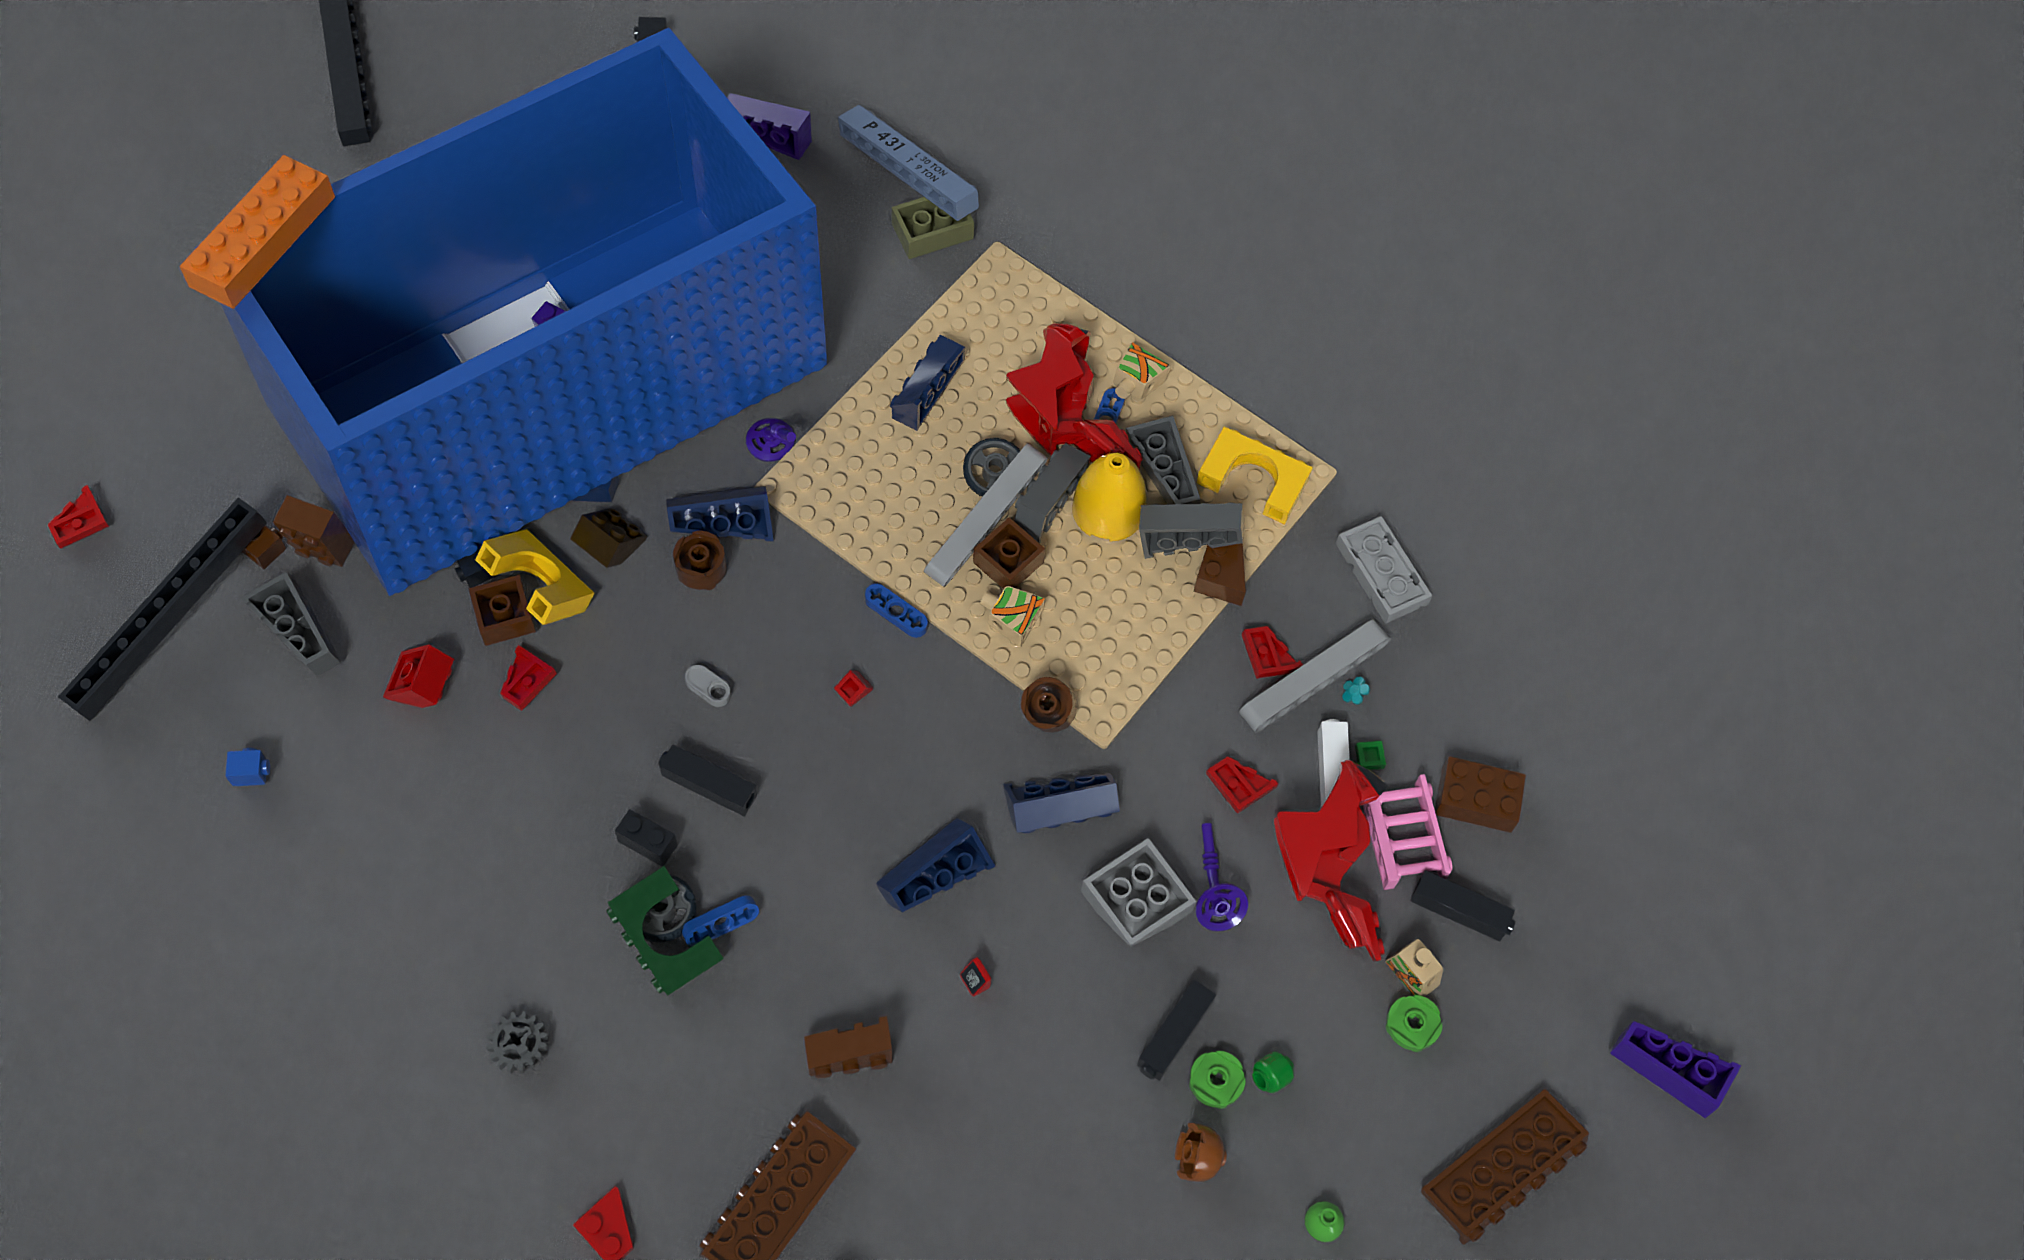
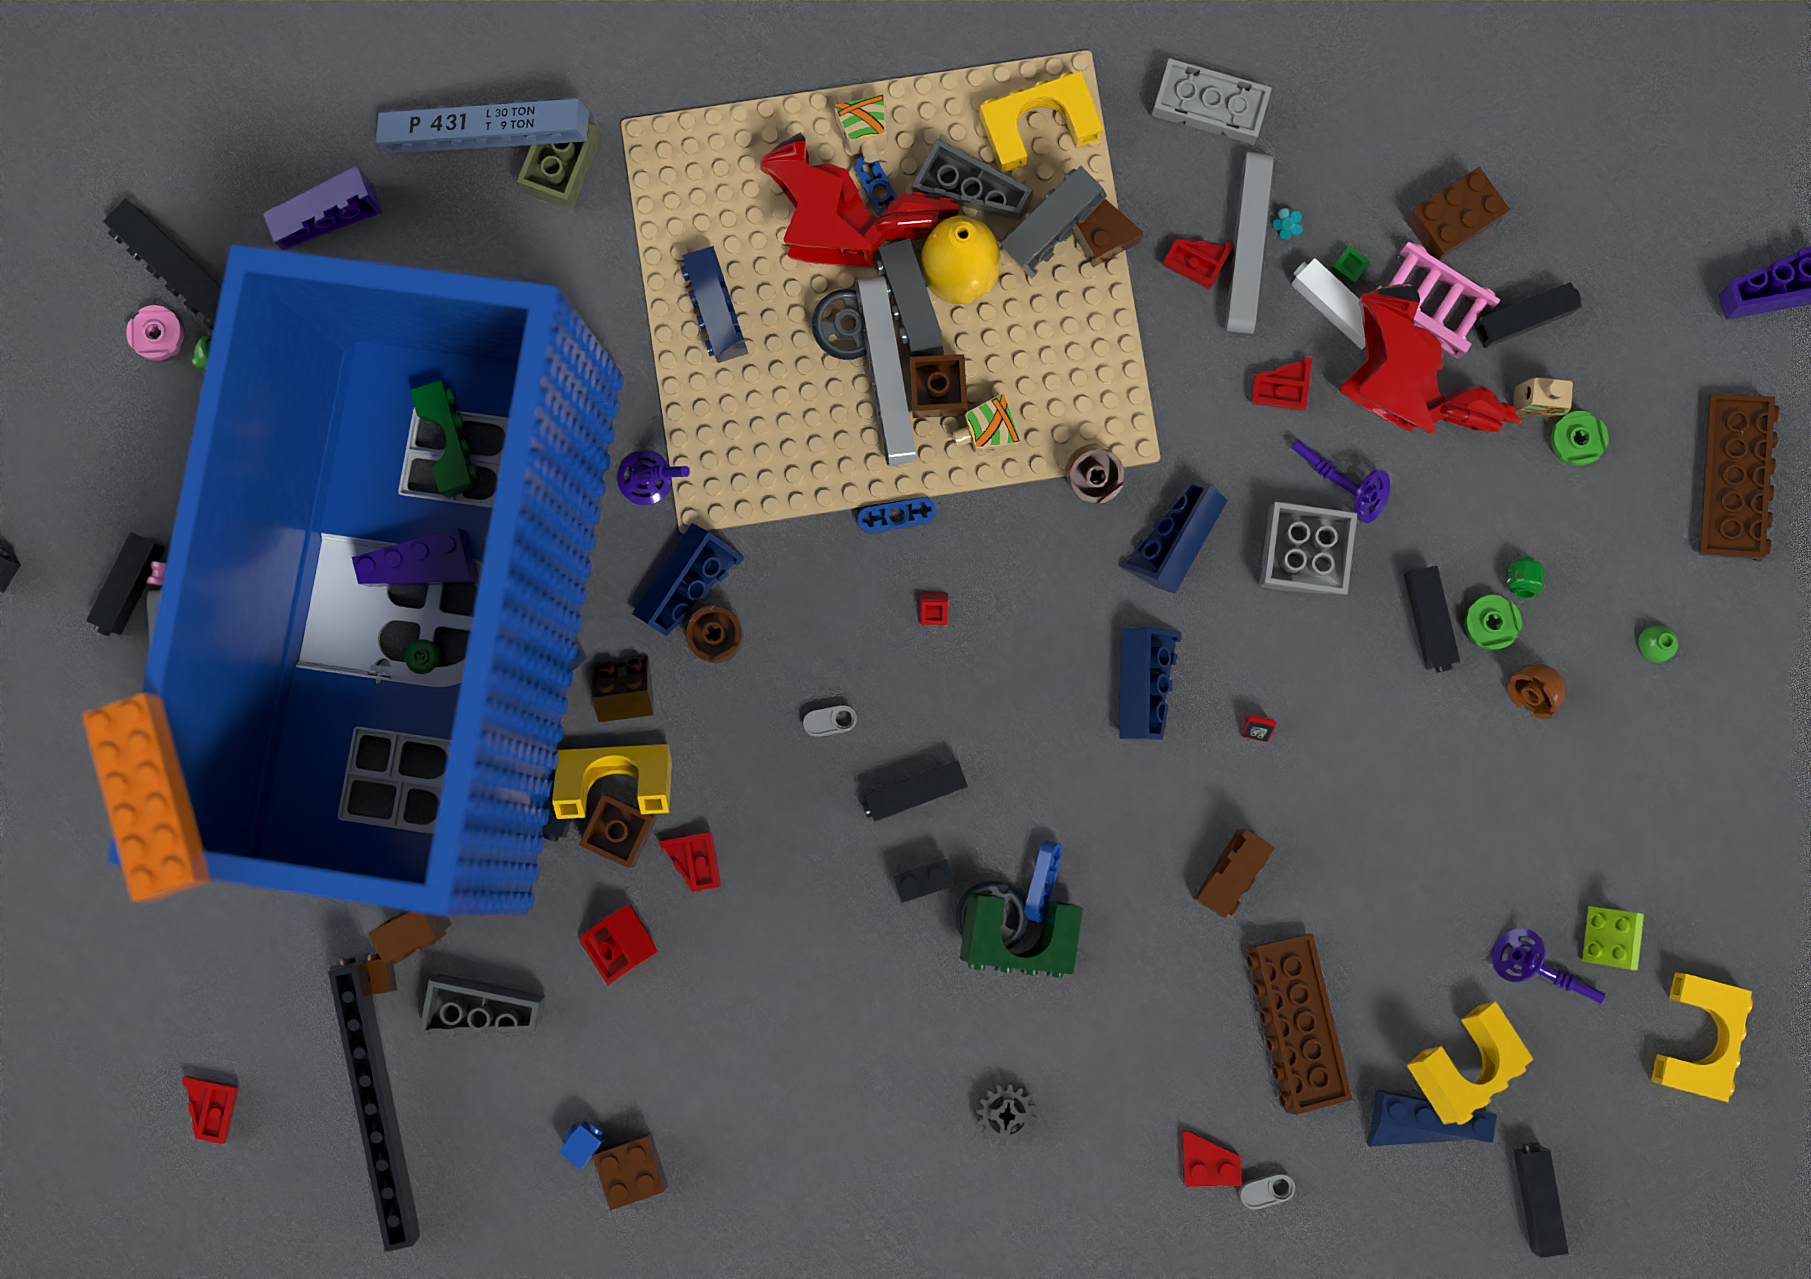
camera: 40 degrees left, 20 degrees up
(253, 816) = (630, 1171): none -> reddish brown brick

